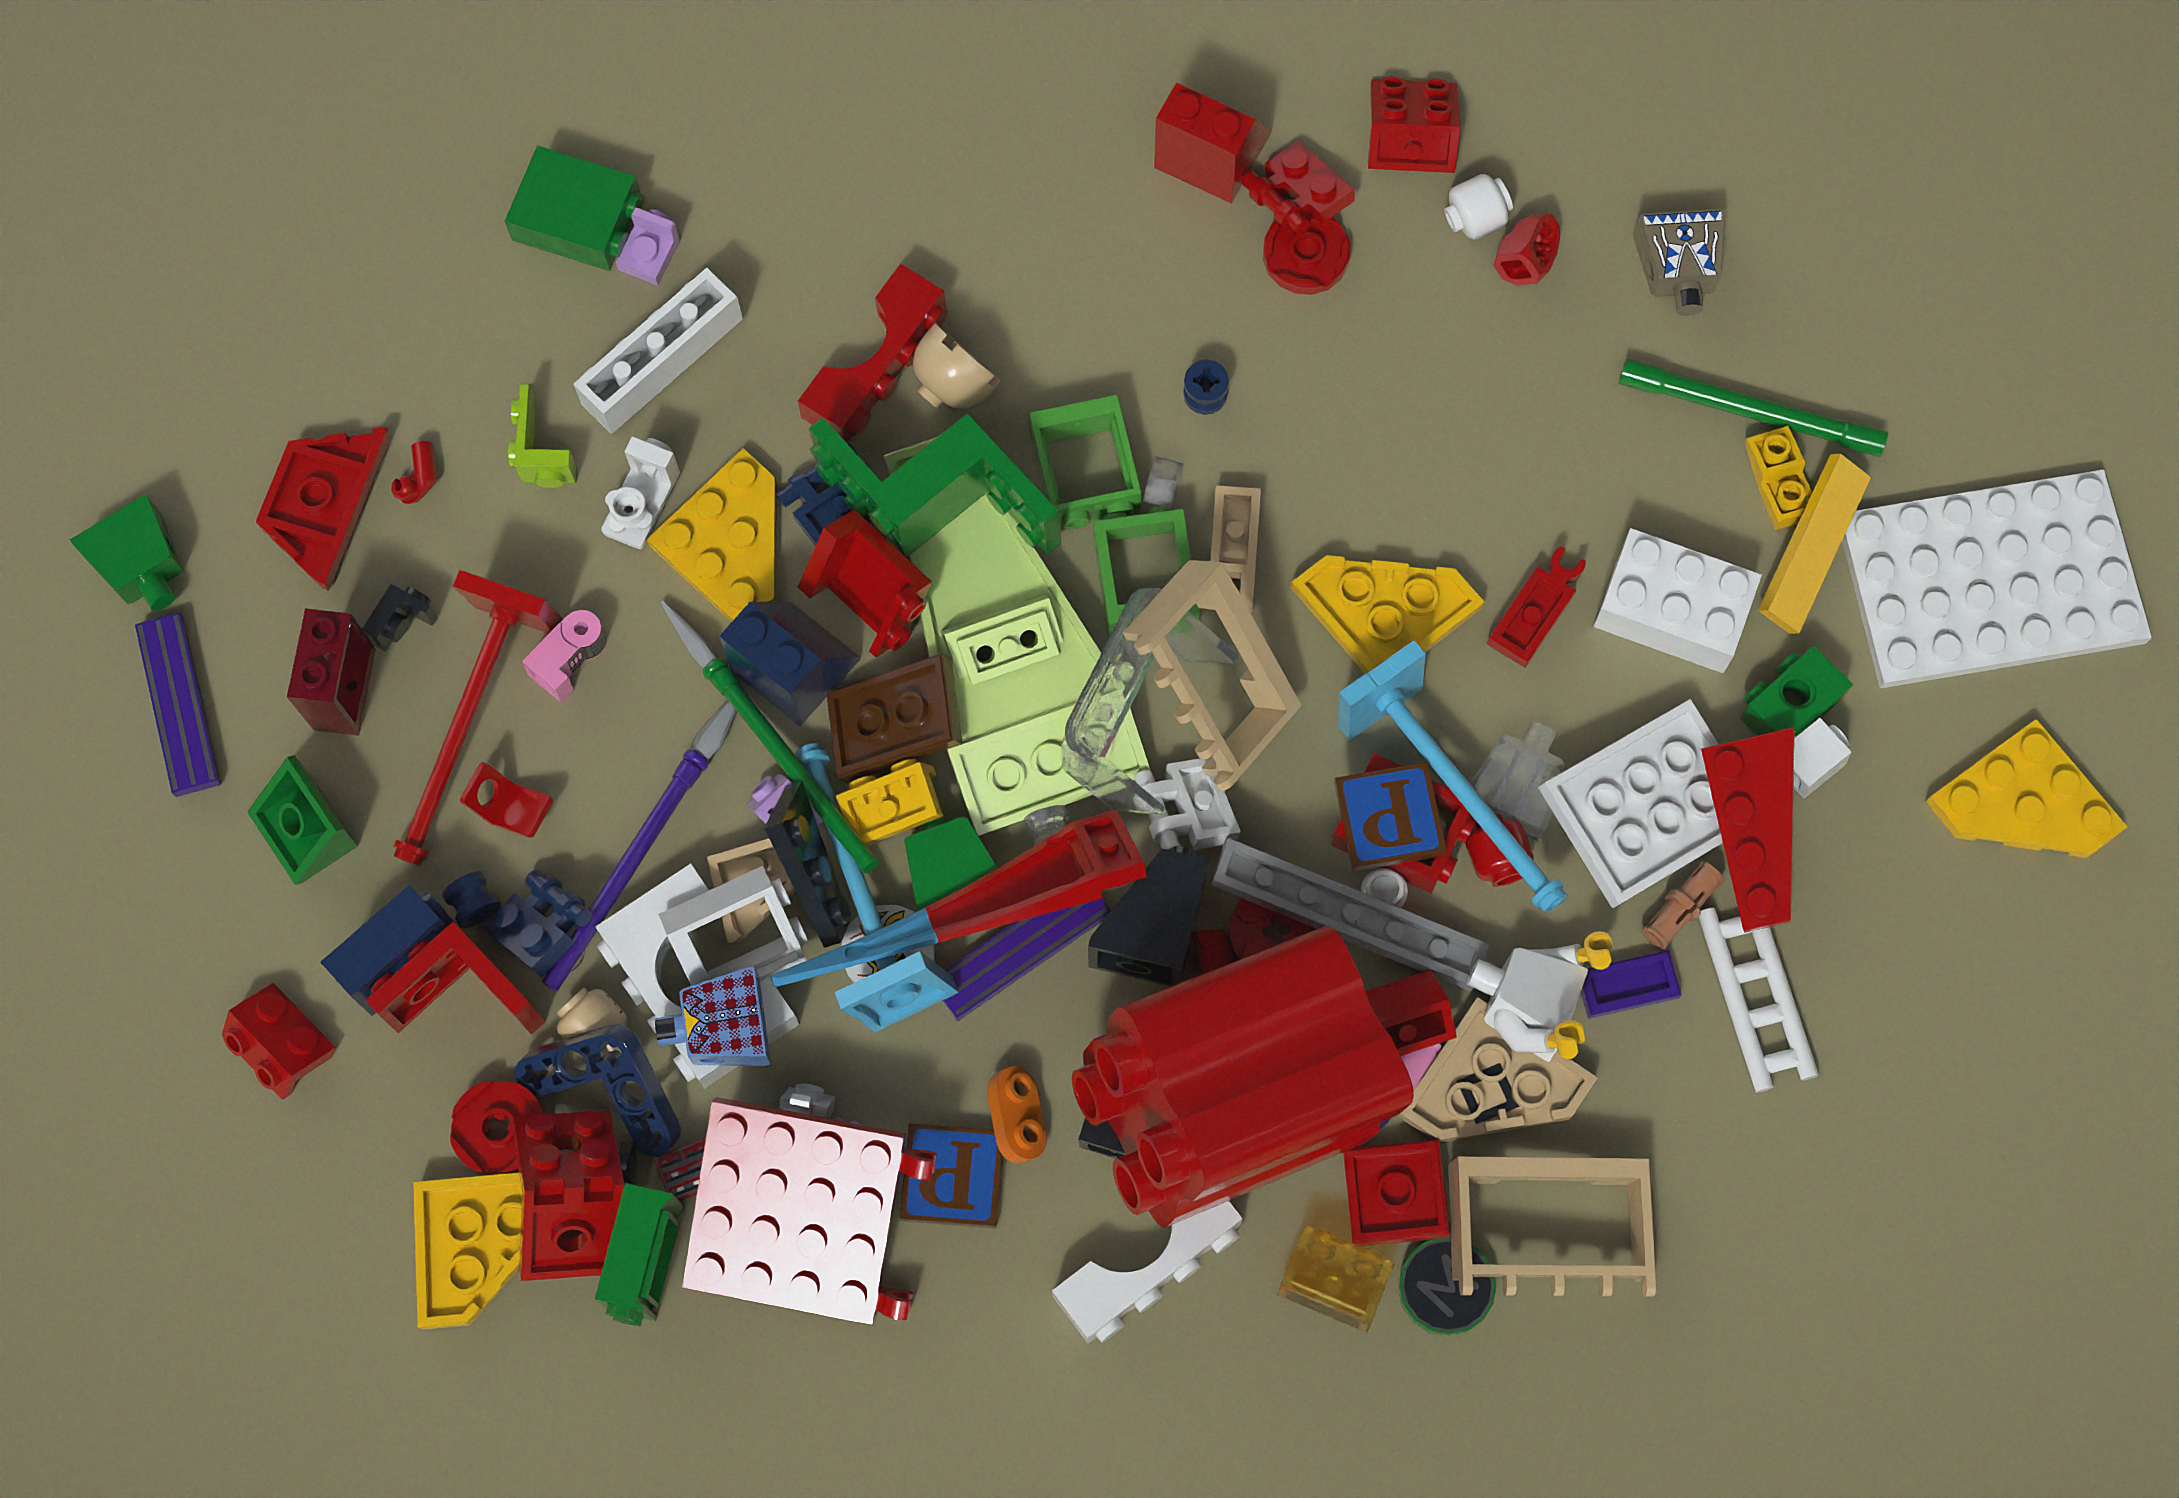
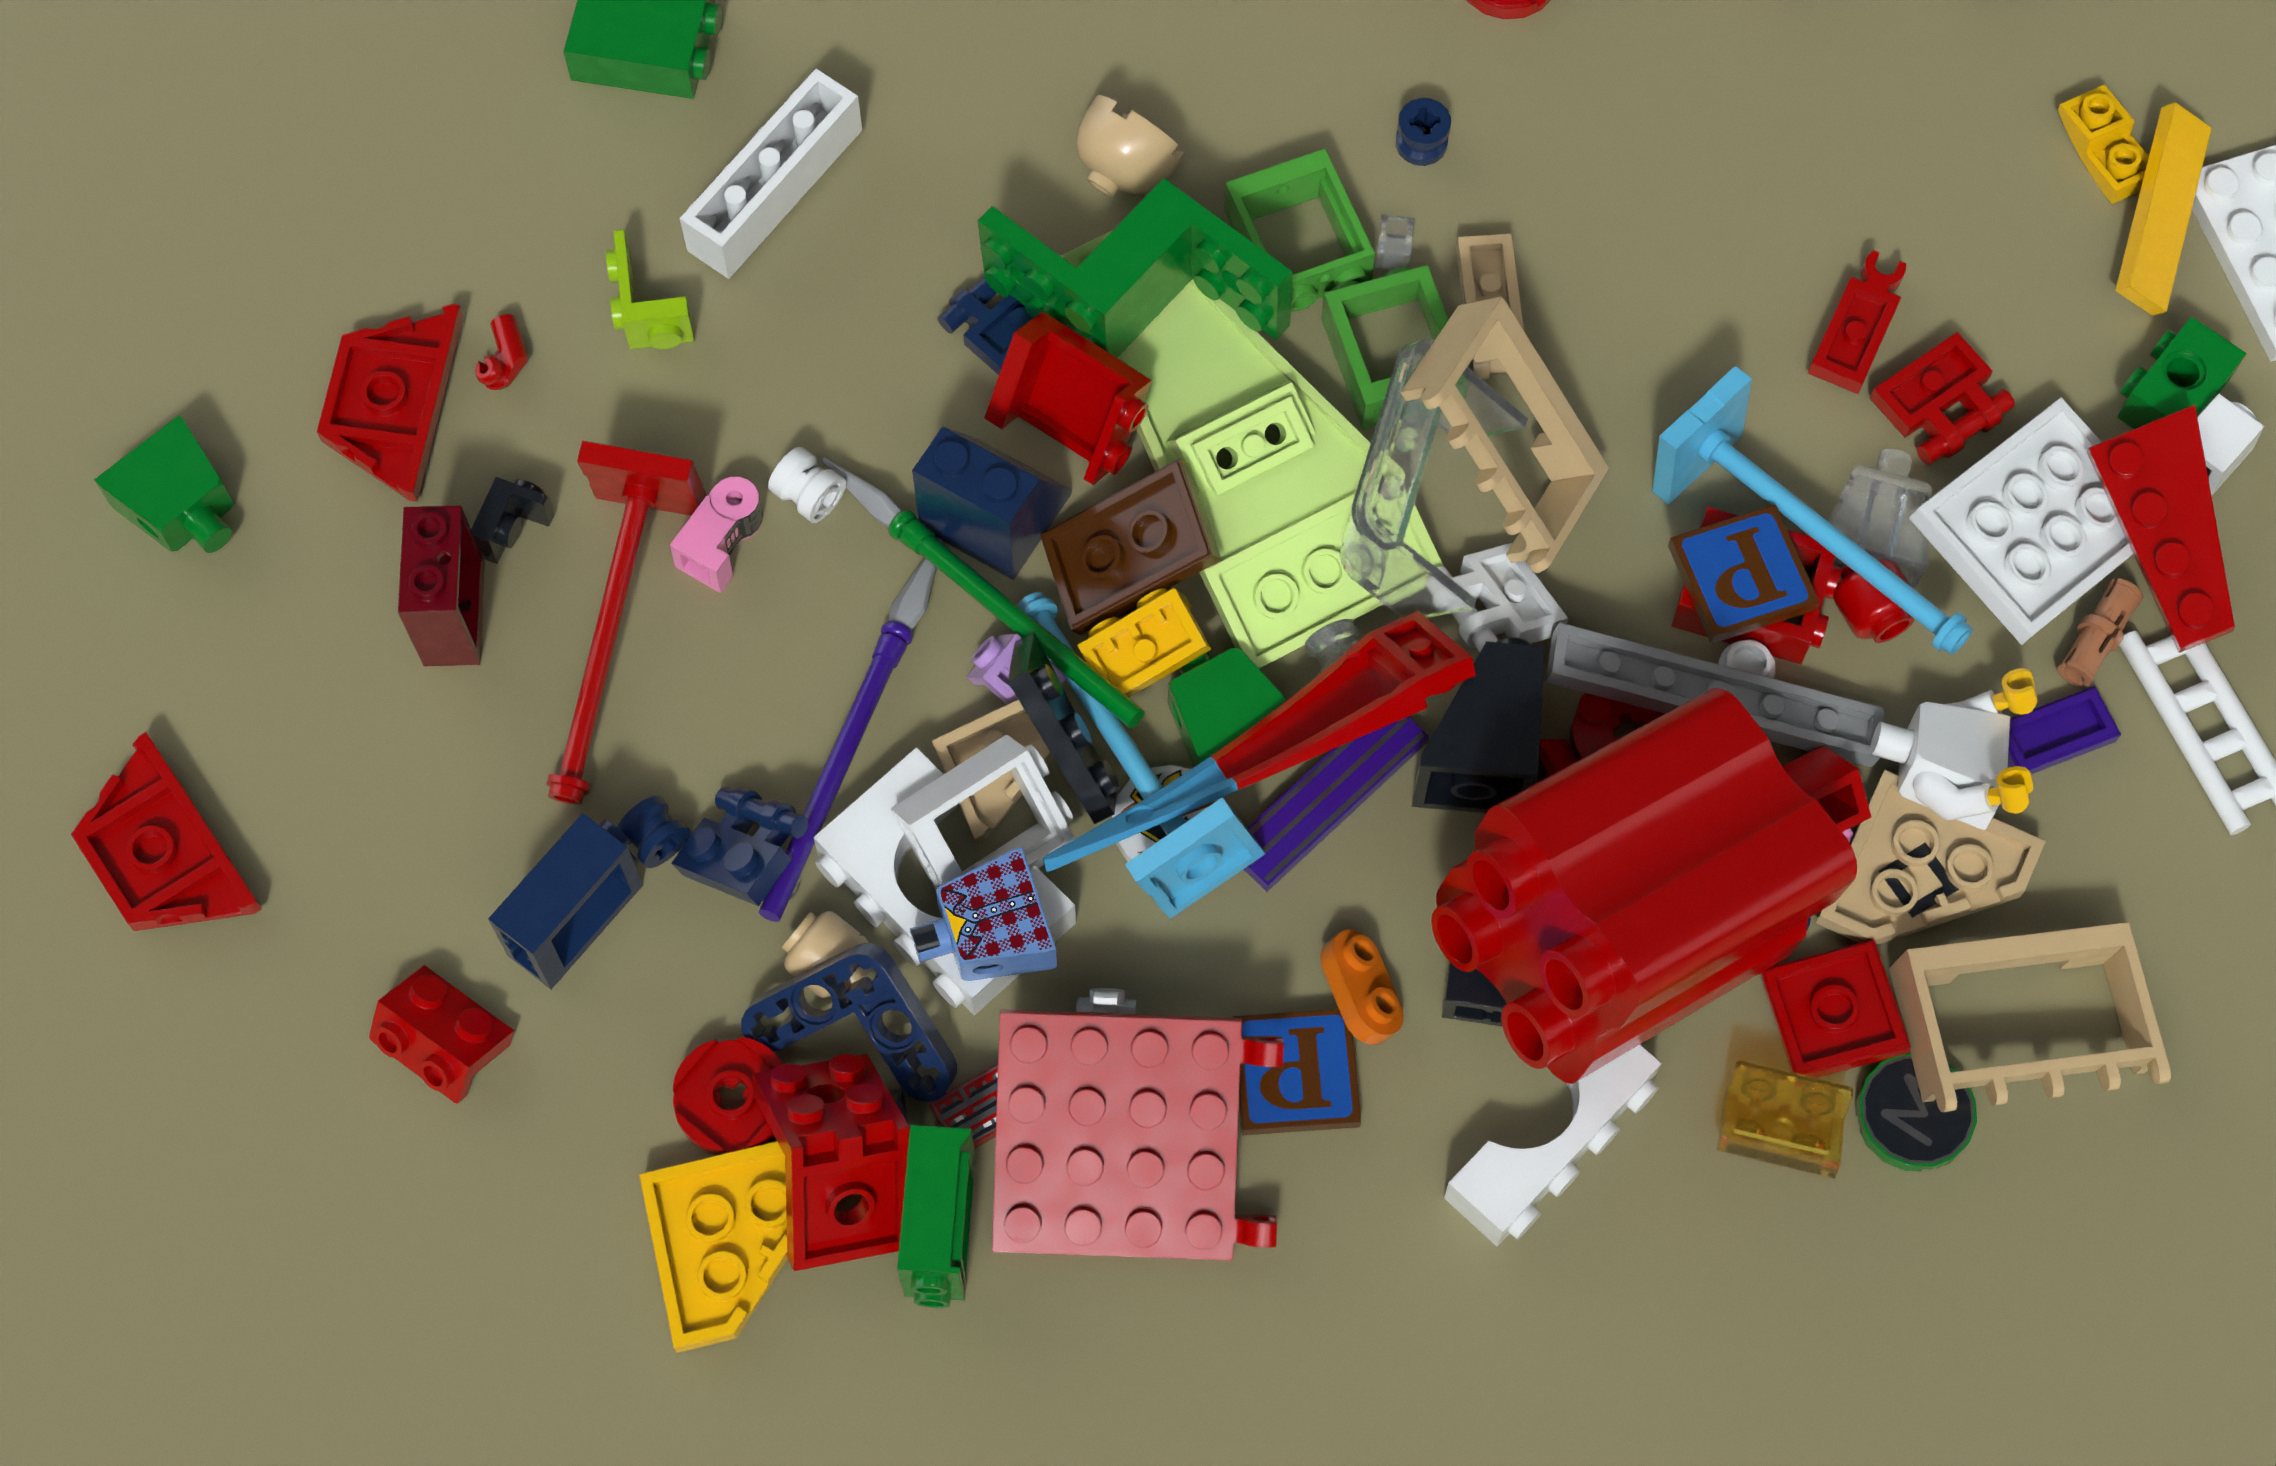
camera: 10 degrees left, 5 degrees down
(78, 855) = (158, 850): none -> red wing
(177, 705) = (253, 658): dark purple tile -> none
(300, 822) = (428, 770): green slope -> none
(432, 970) = (630, 908): red bracket -> none
(511, 806) = (681, 717): red bracket -> none
(622, 498) = (767, 342): white plate -> none
(643, 623) = (807, 485): none -> white wheel
(649, 246) = (737, 61): lavender bracket -> none
(657, 471) = (780, 336): white bracket -> none
(726, 537) = (885, 375): yellow plate -> none
(846, 396) = (1055, 94): red arch -> none
(1385, 605) = (1679, 344): yellow plate -> none
(1588, 670) = (1931, 386): none -> red plate
(1677, 600) = (2021, 292): white piece -> none
(1845, 433) = (2170, 86): green piece -> none

